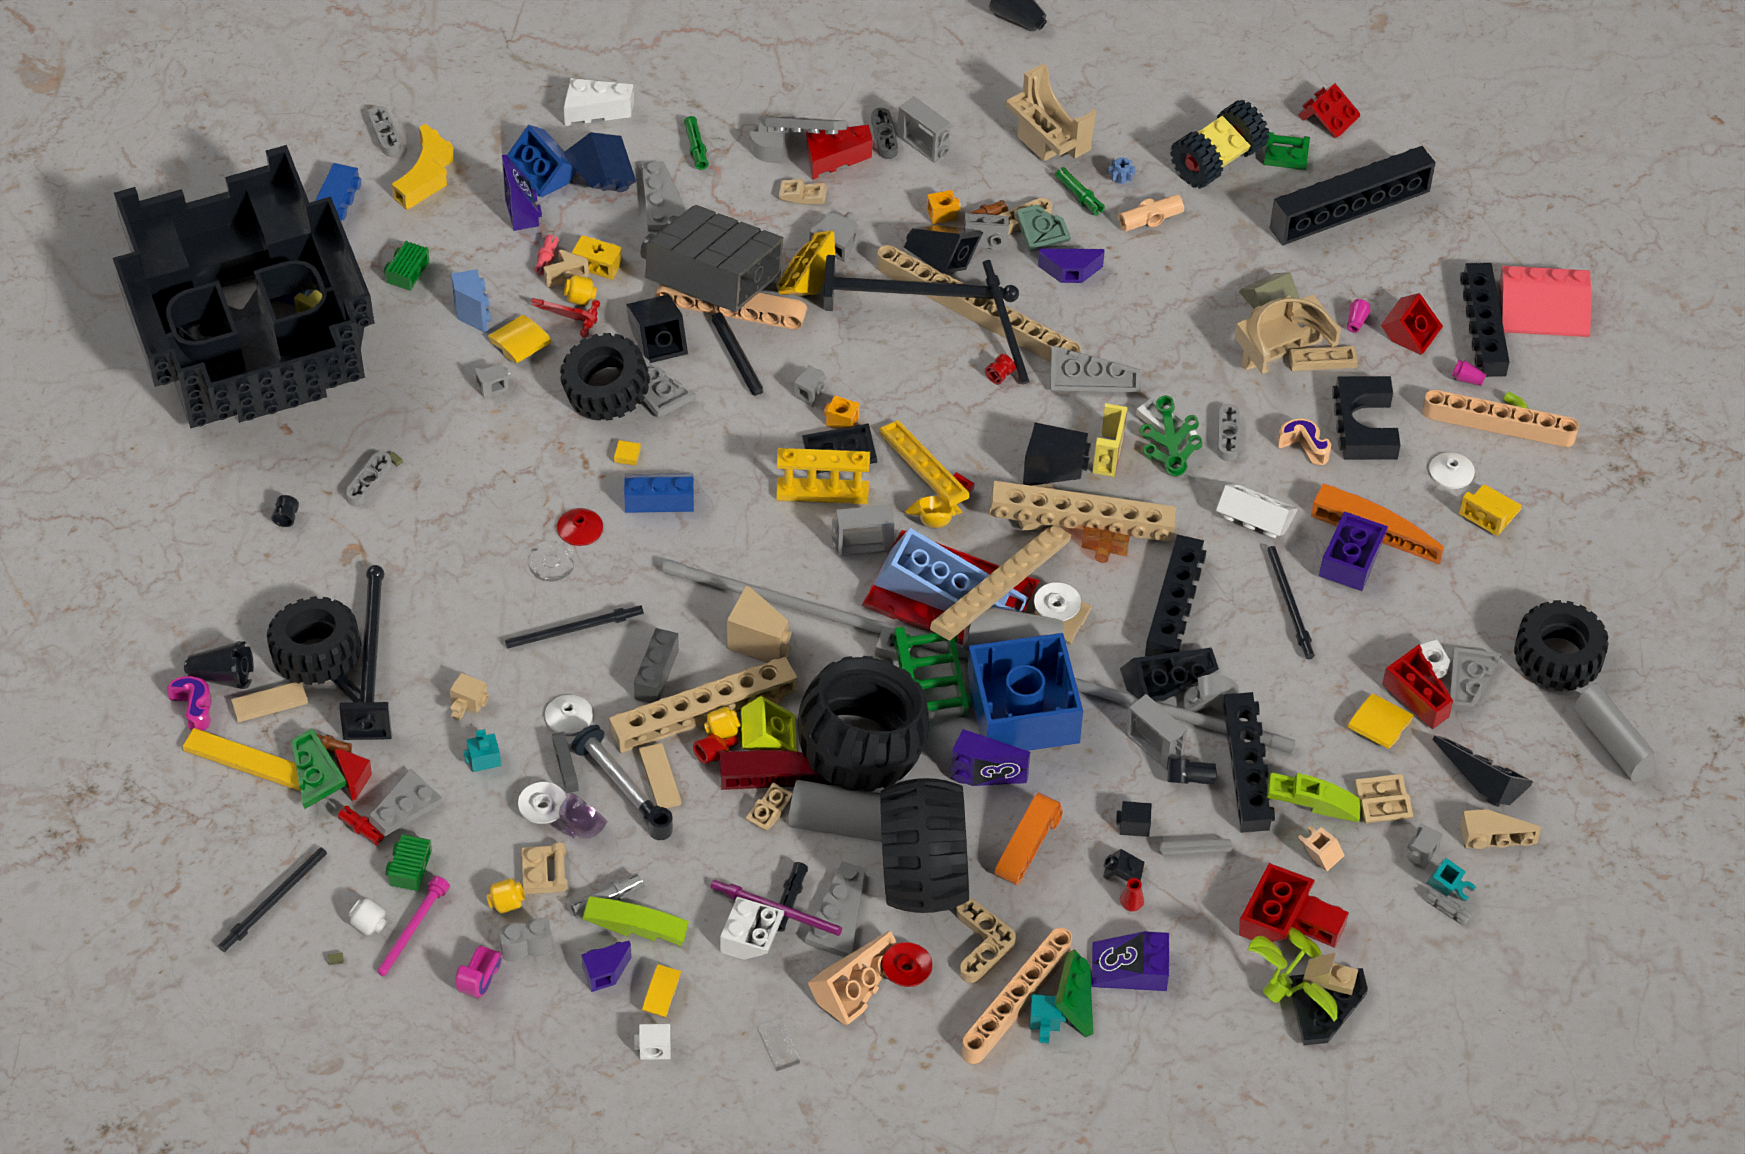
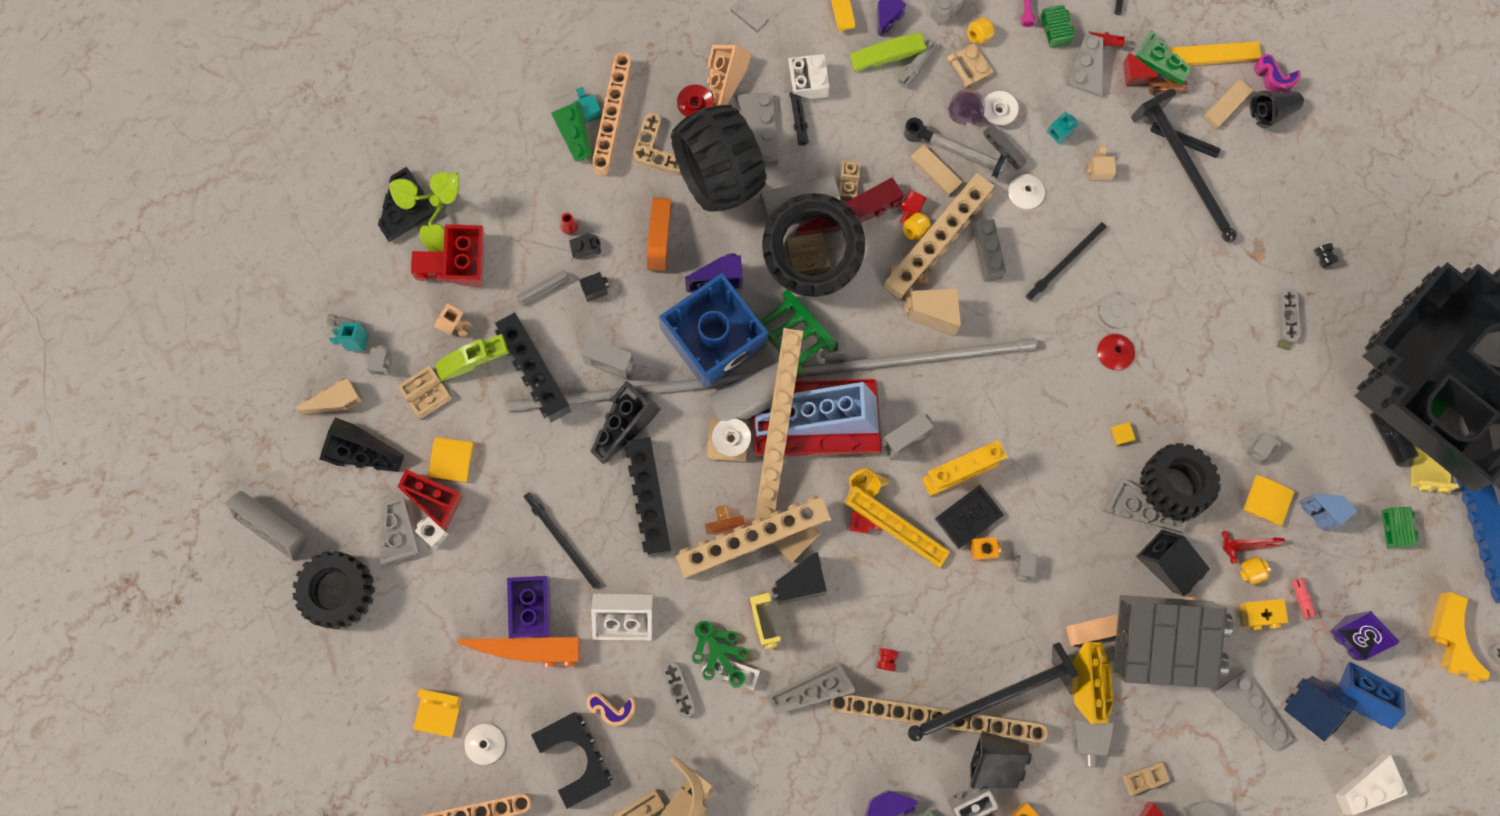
camera: 150 degrees right, 25 degrees up
(320, 660) = (1249, 140): black tyre -> none
(568, 265) = (1276, 589): tan slope -> none
(659, 492) = (1079, 408): blue slope -> none
(697, 149) = (1262, 785): green pin -> none
(733, 891) = (836, 104): magenta bar -> none
(737, 353) = (1093, 568): black axle -> none
(767, 726) = (884, 237): neon yellow slope -> none
(993, 283) = (932, 726): black bar -> none
(1132, 962) = (547, 174): dark purple slope -> none
(1185, 771) = (574, 342): black piece -> none
(1209, 693) = (581, 416): light grey brick -> none
(1330, 975) = (405, 219): tan slope -> none

